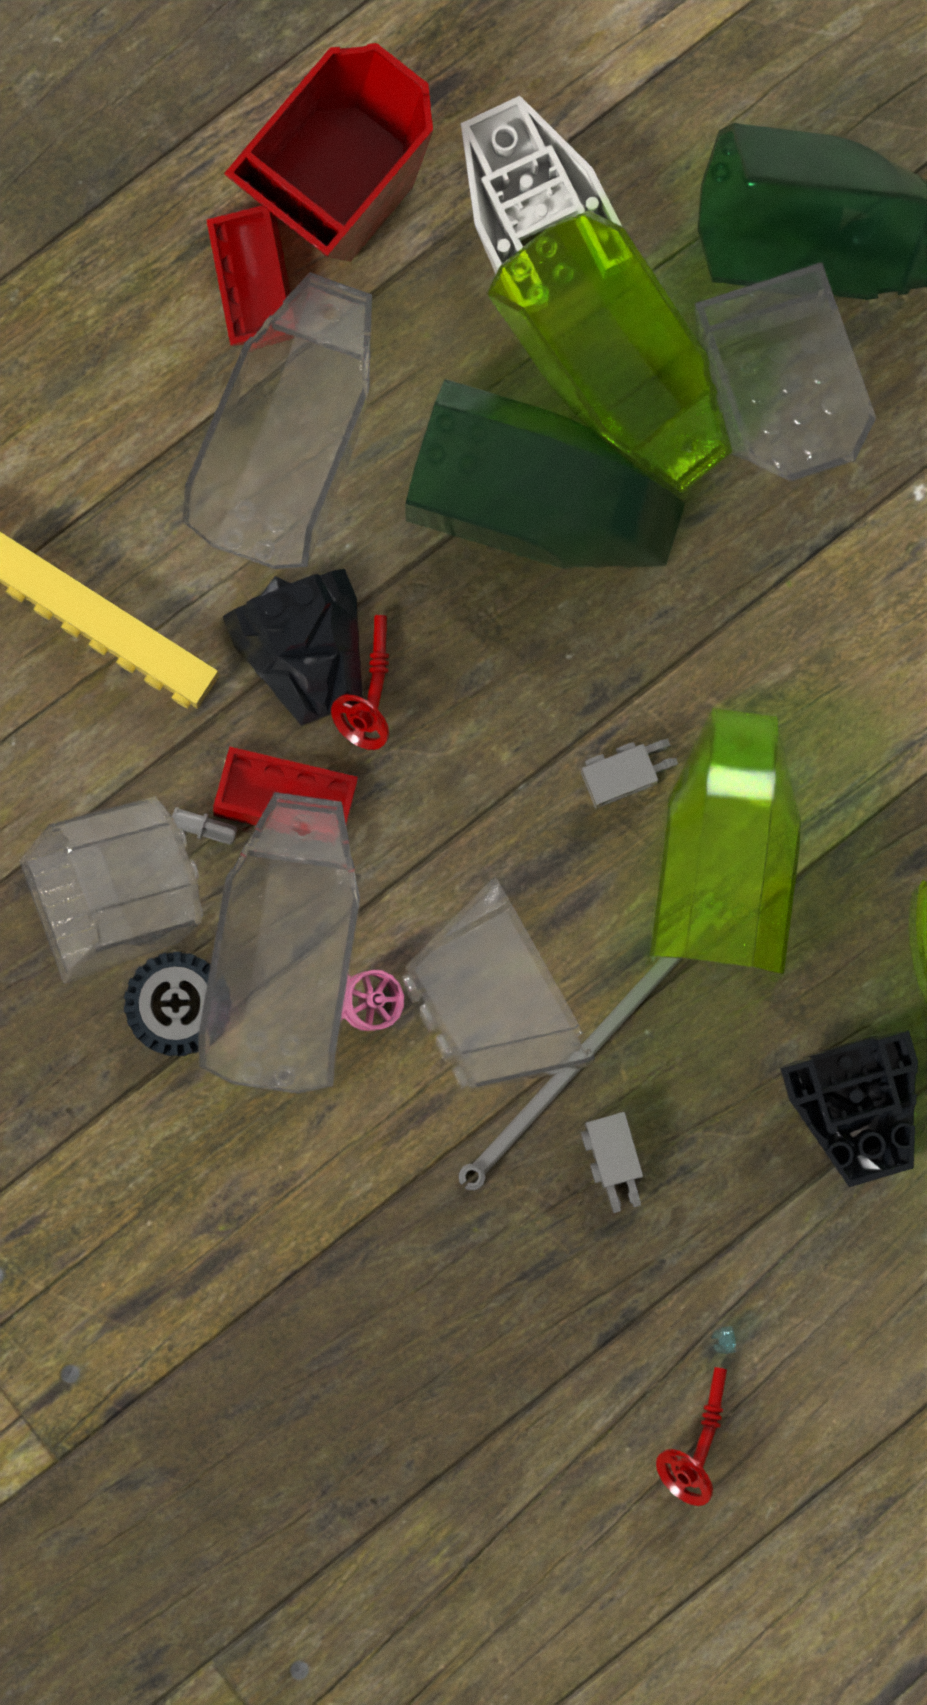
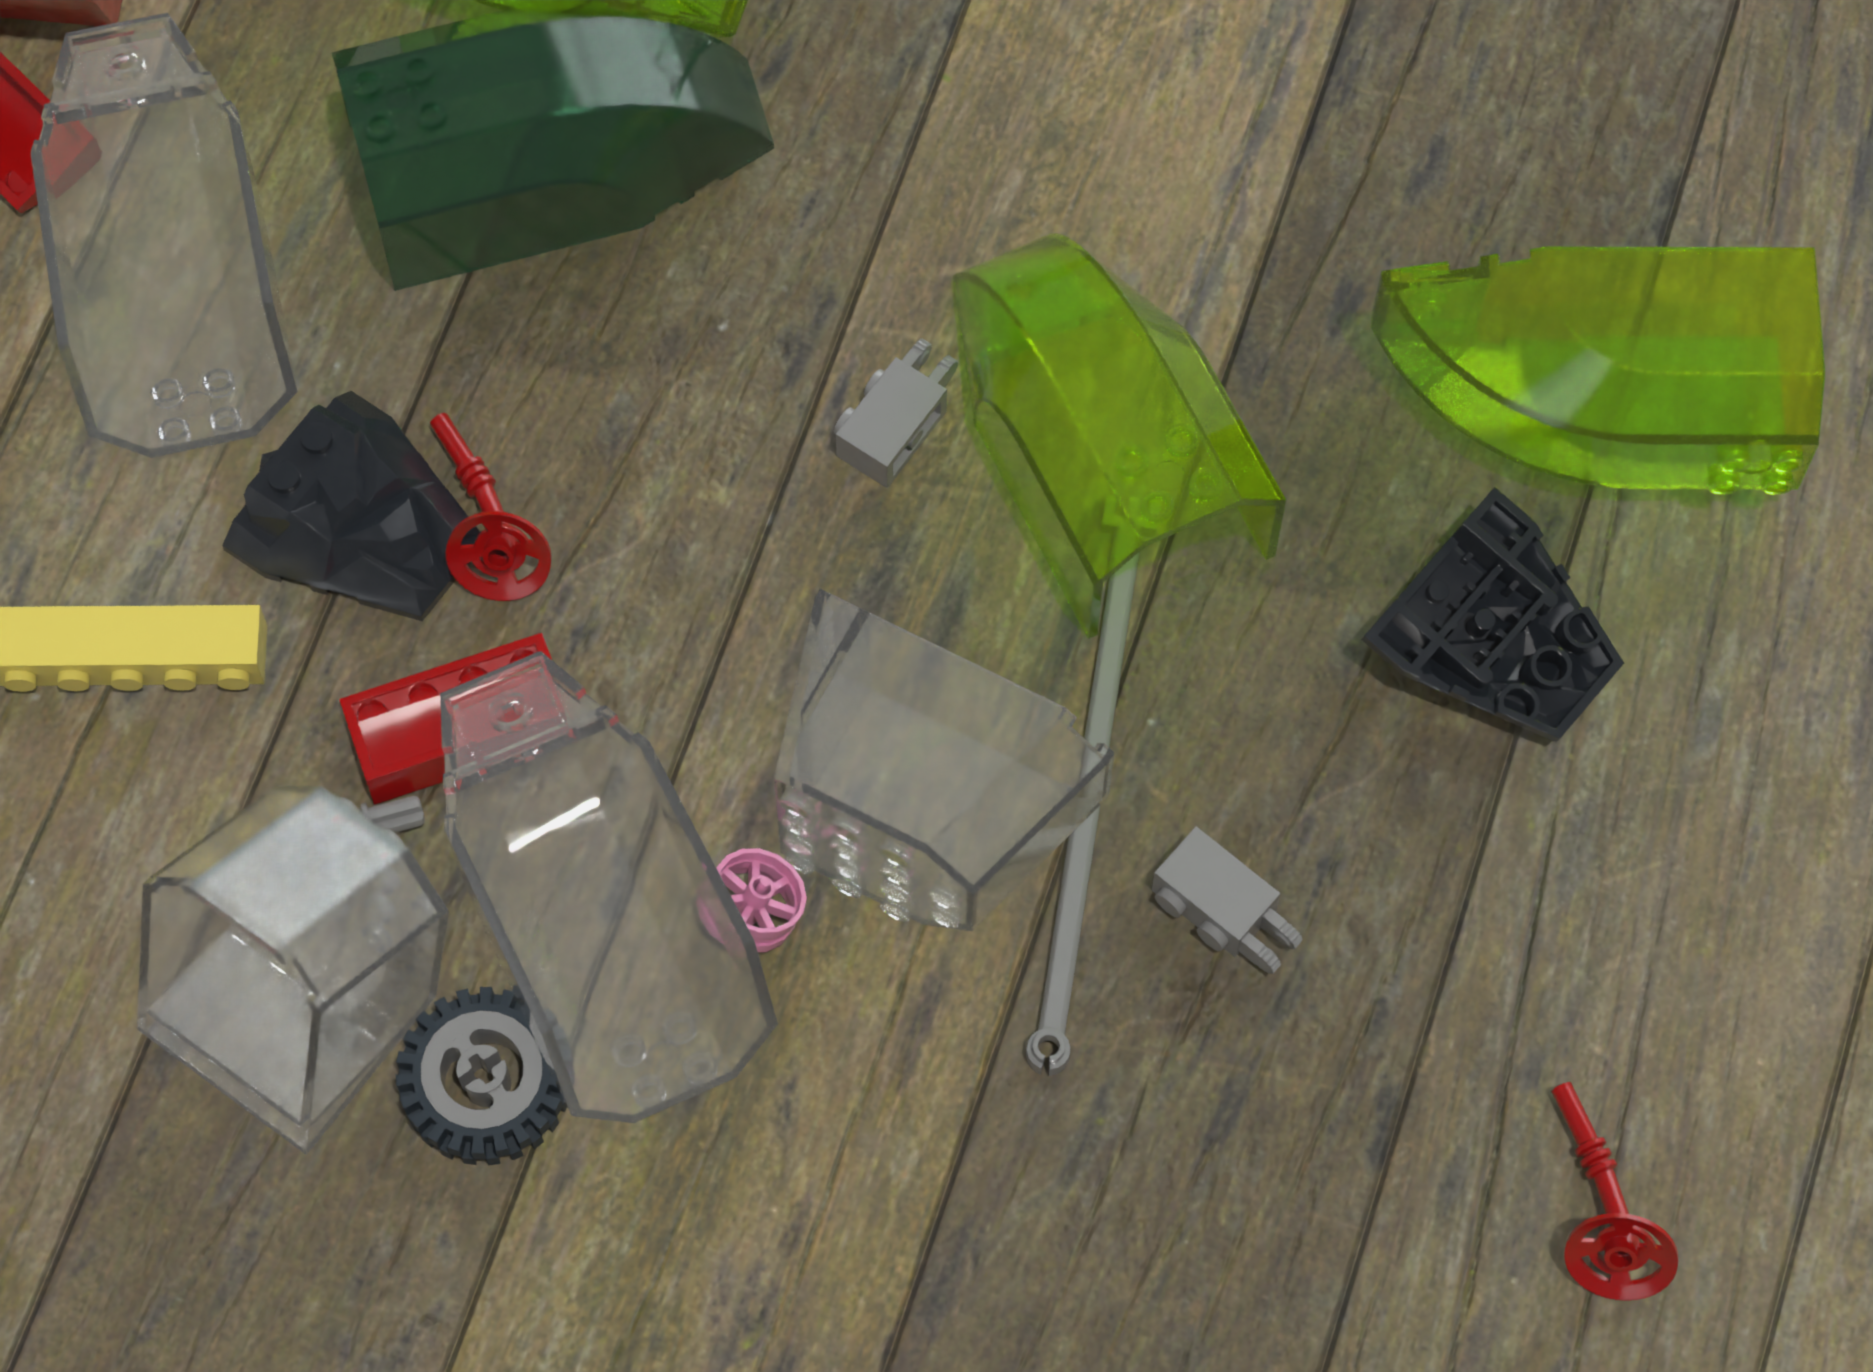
camera: 30 degrees left, 15 degrees down
(726, 1340) = (1542, 1044): clear light blue hinge -> none

